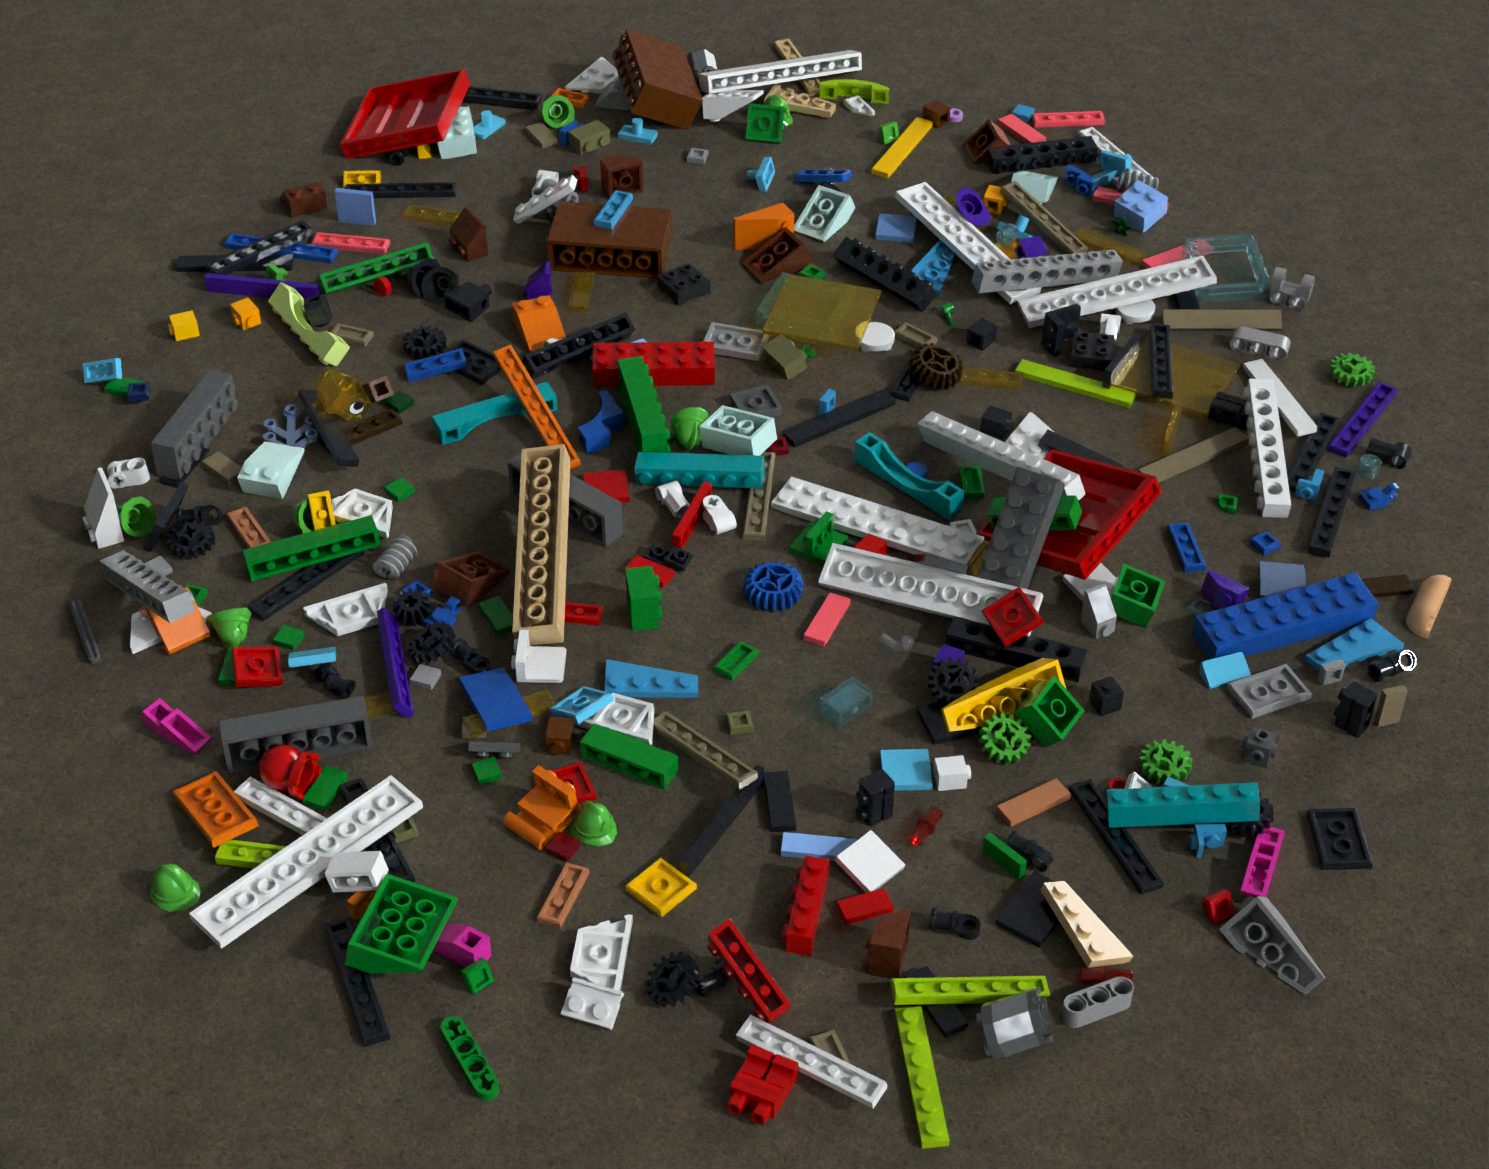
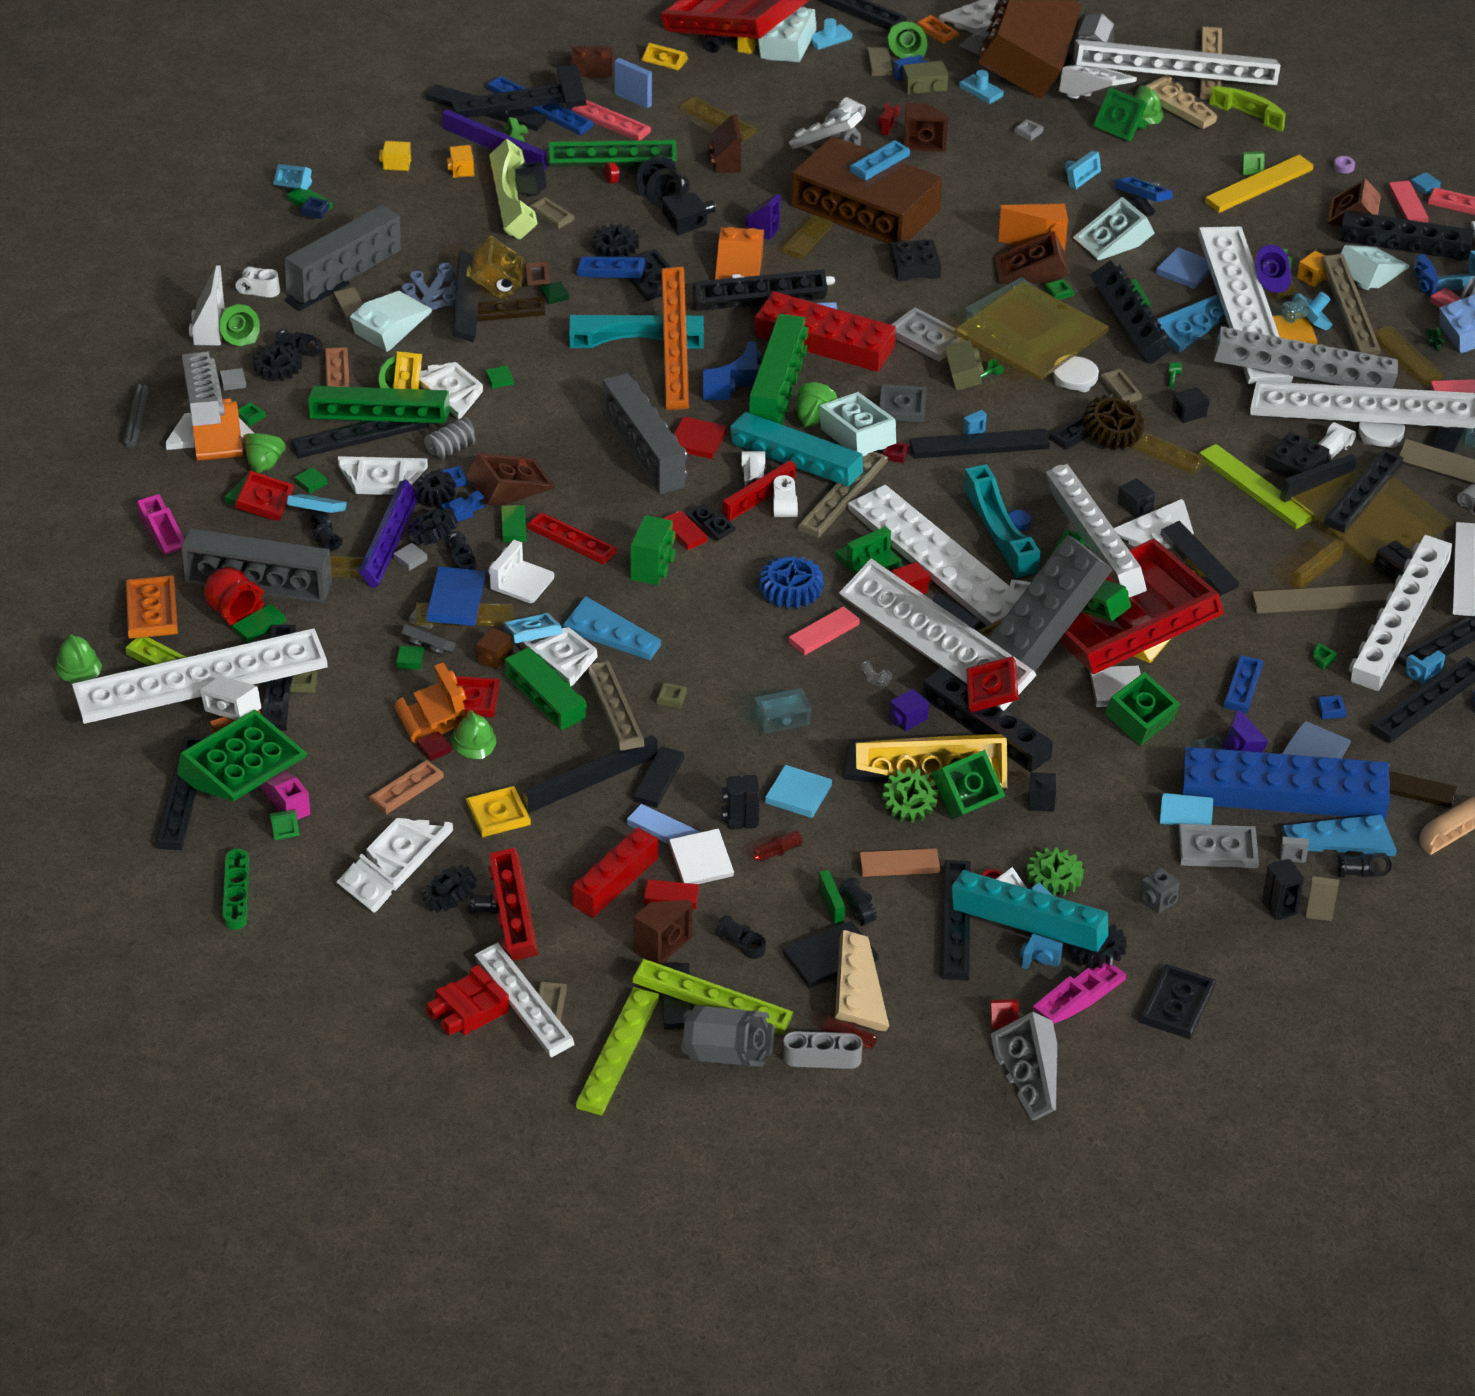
camera: 25 degrees right, 0 degrees up
(166, 517) = (264, 333): black tile -> none
(278, 806) = (205, 621): white plate -> none
(305, 223) = (571, 86): none -> black tile
(408, 190) = (699, 80): black tile -> none
(542, 544) = (584, 466): tan brick -> none
(736, 660) = (708, 639): green tile -> none
(858, 105) = (1244, 124): white tile -> none
(937, 112) = (1322, 156): reddish brown brick -> none
(947, 673) = (895, 716): black gear -> none
(951, 773) = (836, 808): white brick -> none
(1030, 247) = (1308, 330): dark purple slope -> none
(1059, 326) = (1275, 420): black bracket -> none
(1098, 612) = (1092, 711): light grey slope -> none

